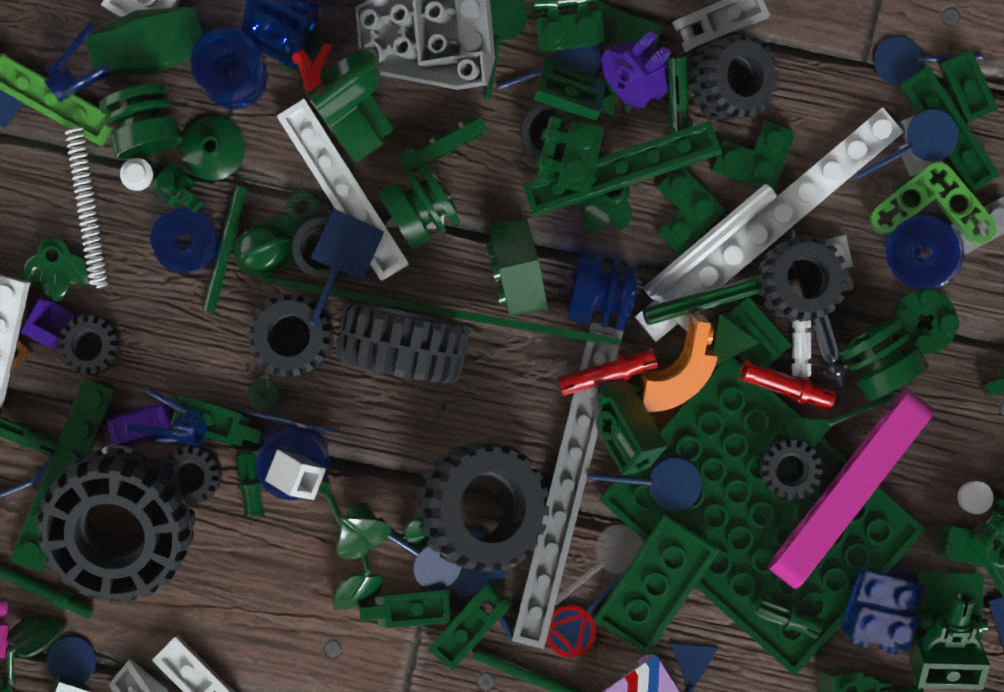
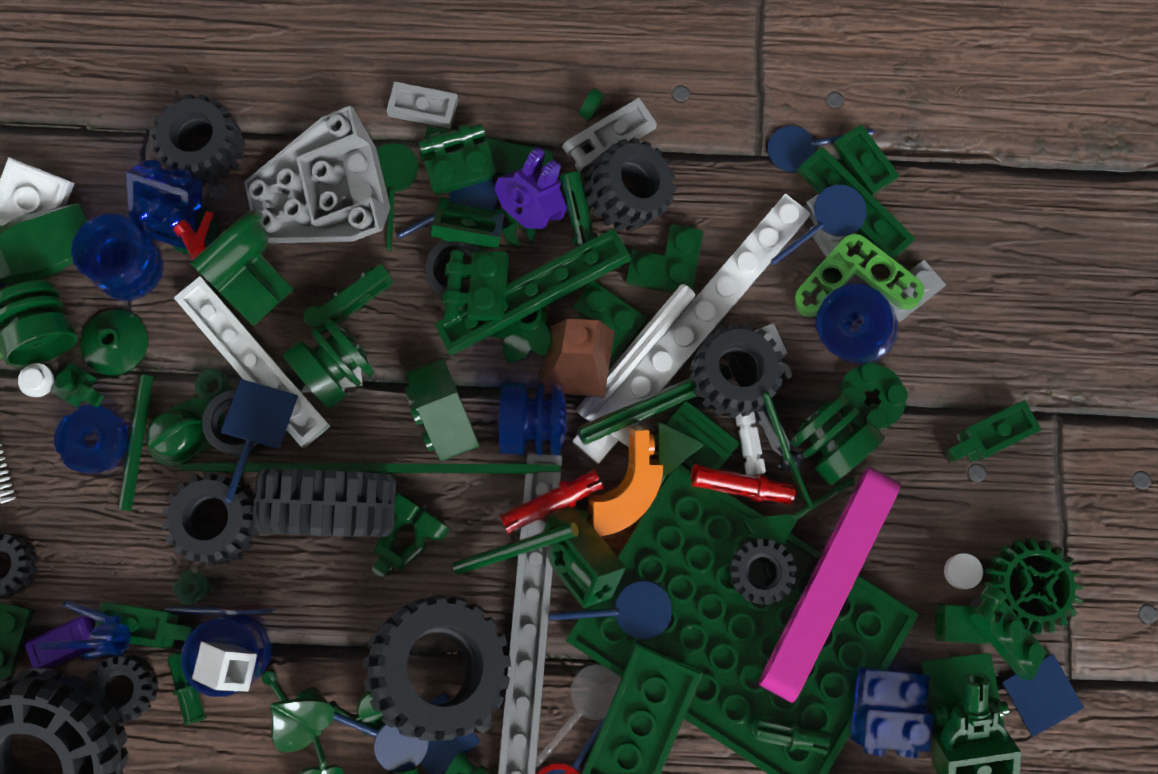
camera: 10 degrees left, 10 degrees down
(486, 373) = (425, 526): none -> dark green piece
(568, 410) = (516, 548): none -> dark green bar
(654, 240) = (579, 357): none -> copper slope
(833, 360) = (799, 485): none -> dark green piece

